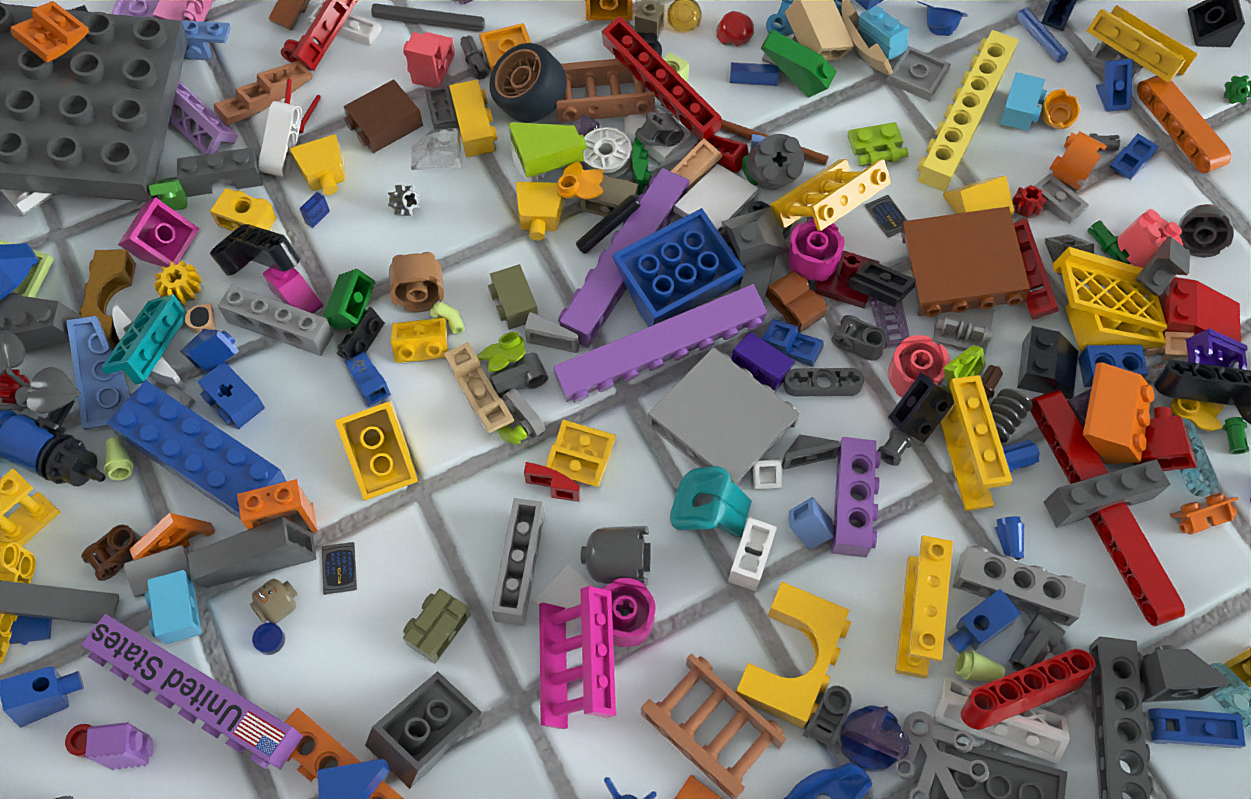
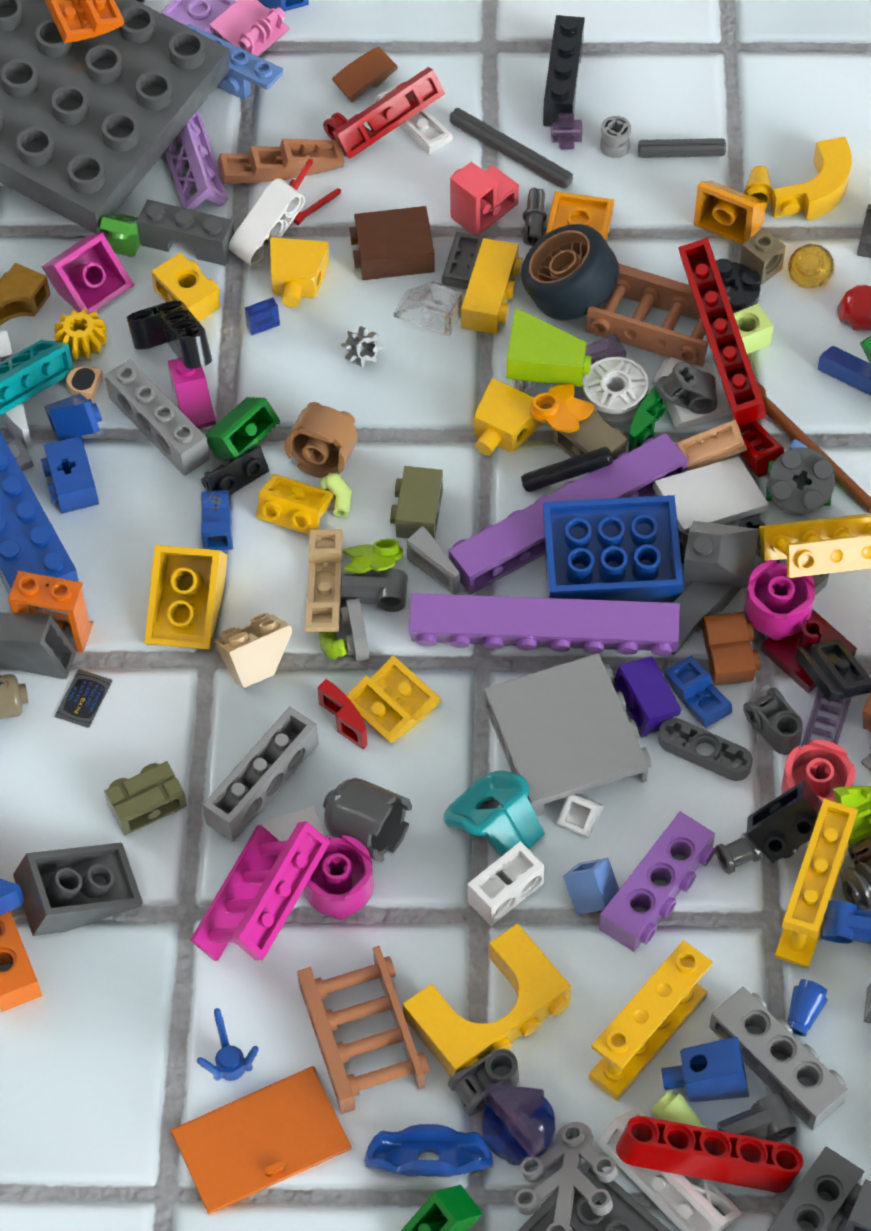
camera: 30 degrees right, 5 degrees down
(455, 464) = (255, 649): none -> slope
(810, 450) = (637, 812): dark grey slope -> none

